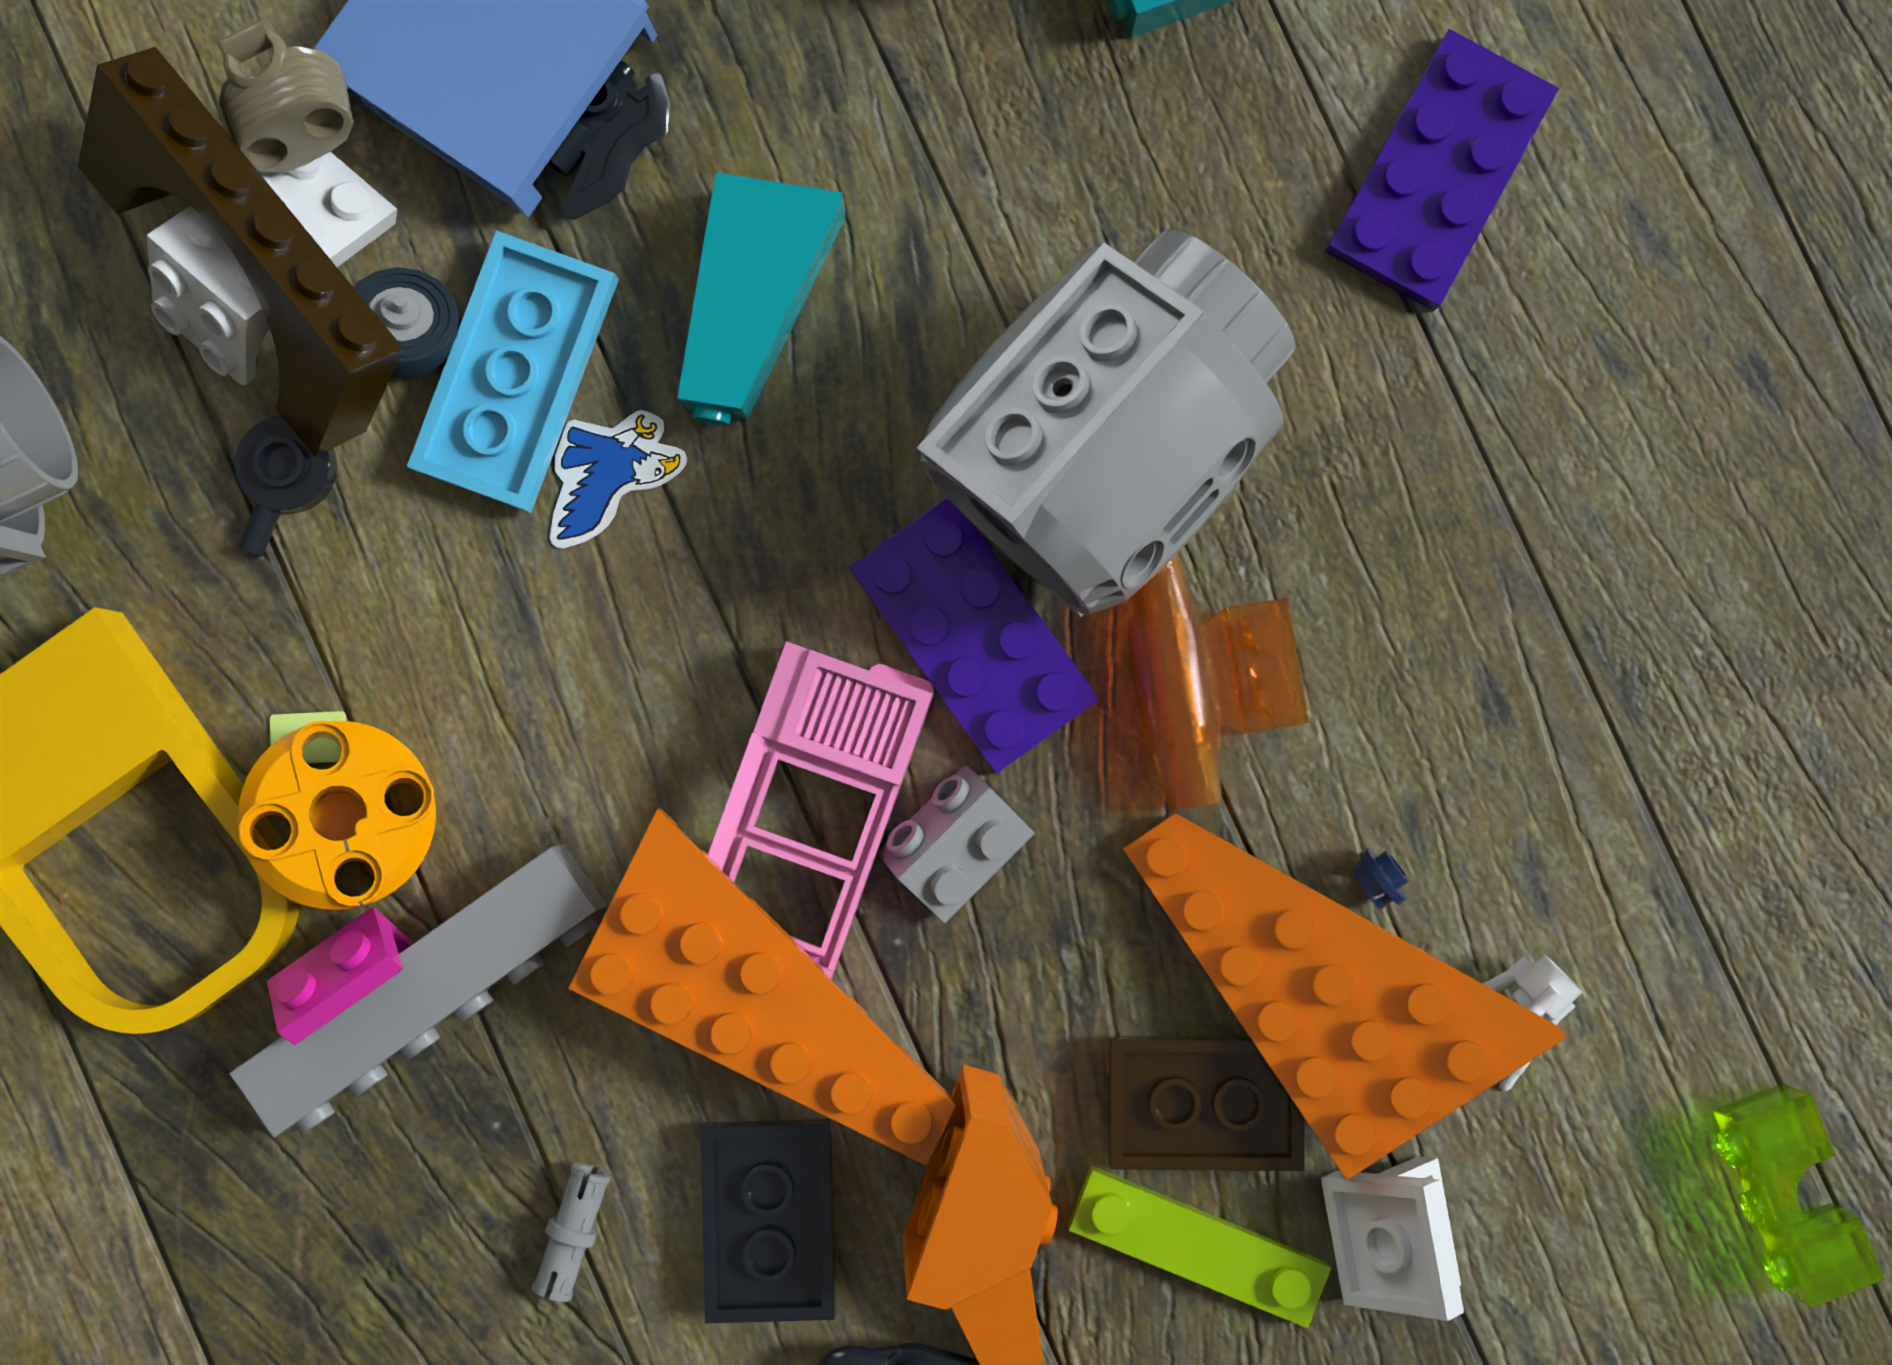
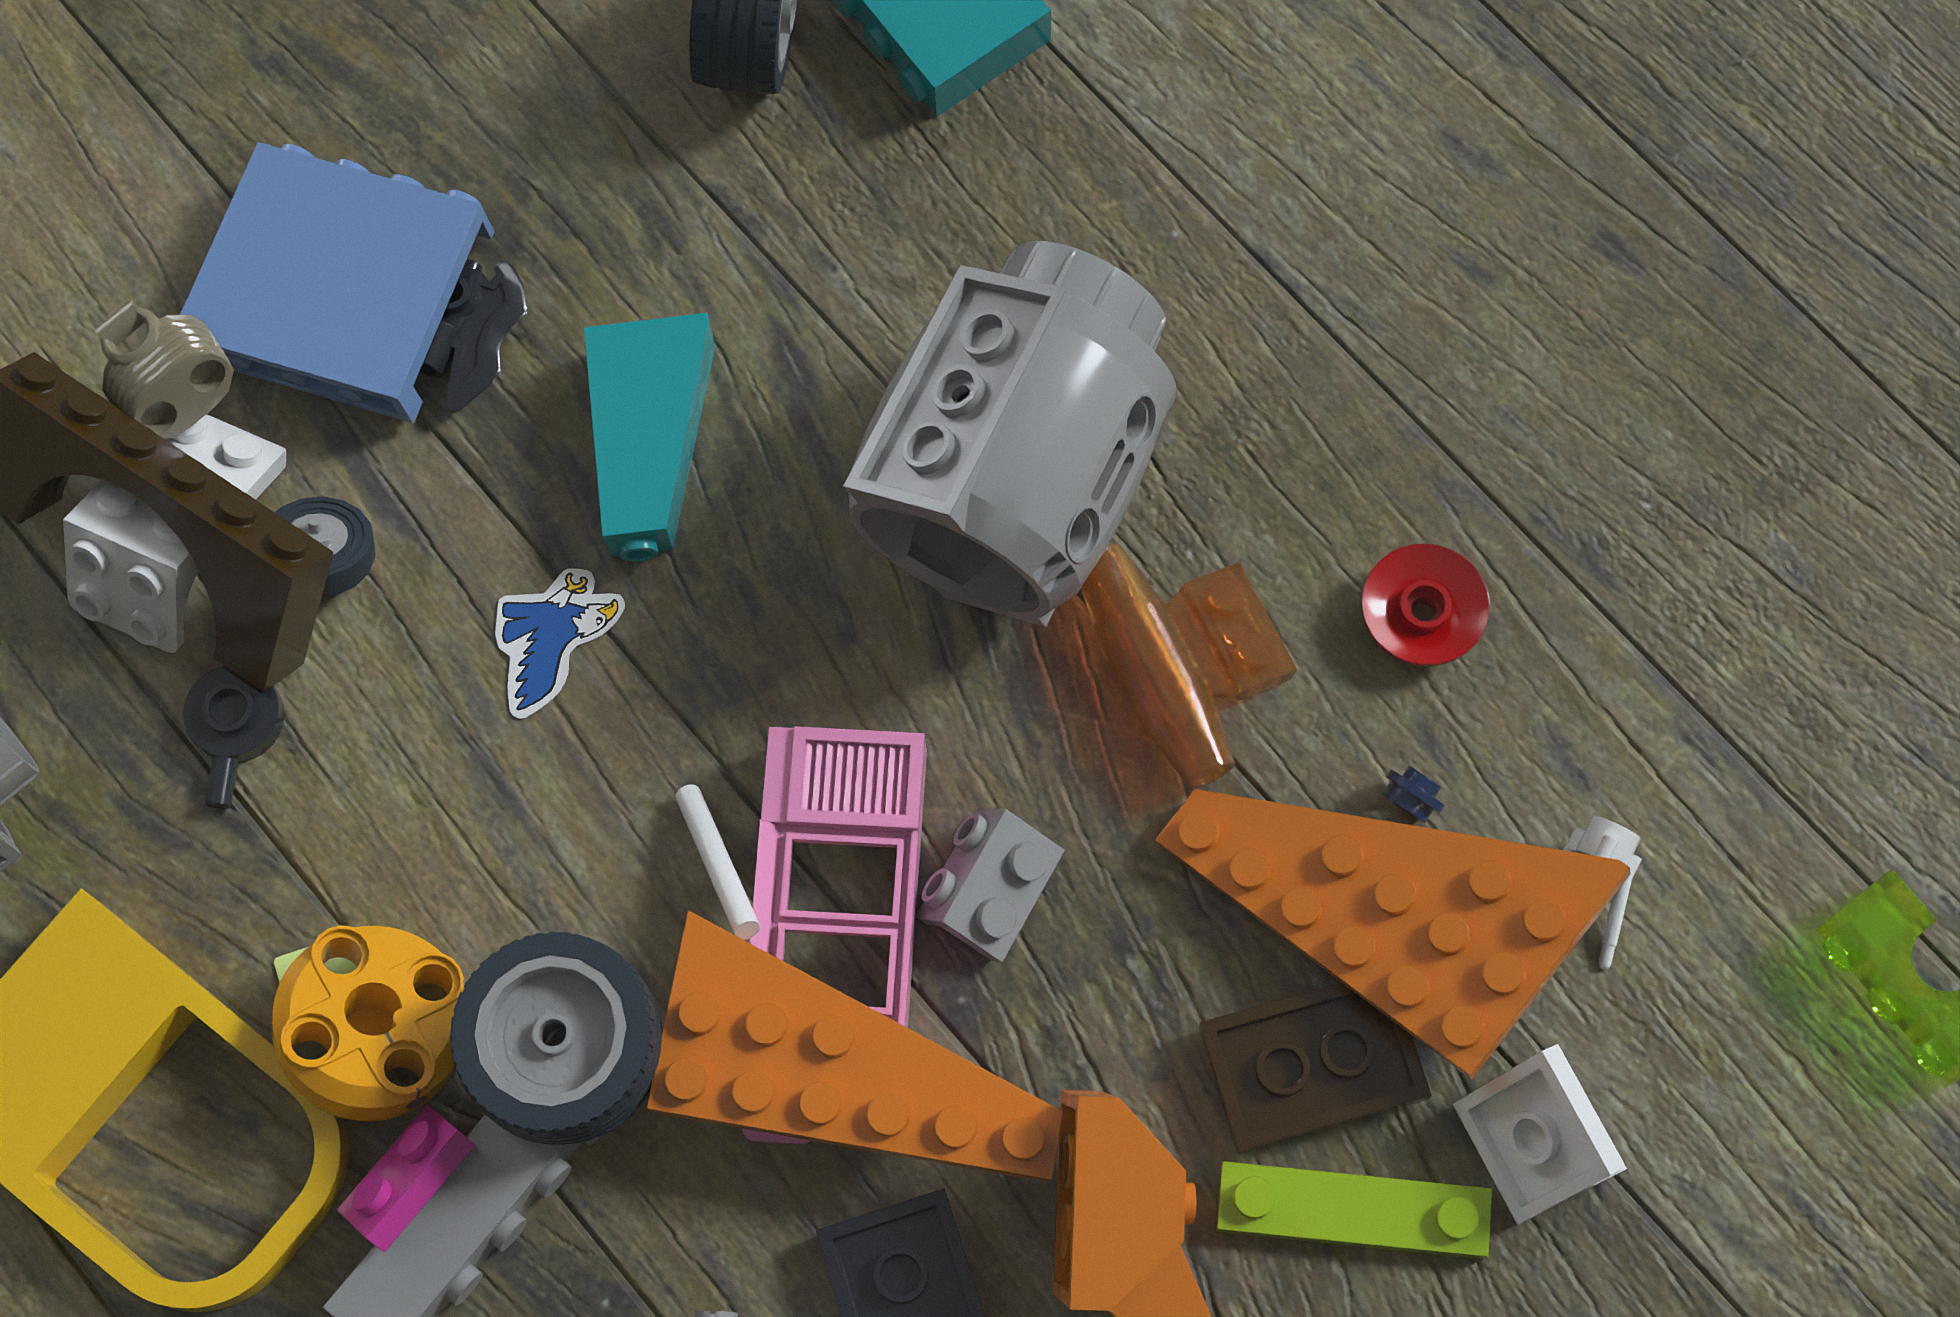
camera: 15 degrees left, 15 degrees down
(448, 913) = (568, 1088): none -> wheel
(513, 371) = (435, 565): medium azure plate -> none
(702, 757) = (717, 862): none -> white bar
(973, 634) = (950, 680): dark purple plate -> none
(1442, 170) = (1258, 151): dark purple plate -> none
(1484, 696) = (1429, 577): none -> red dish

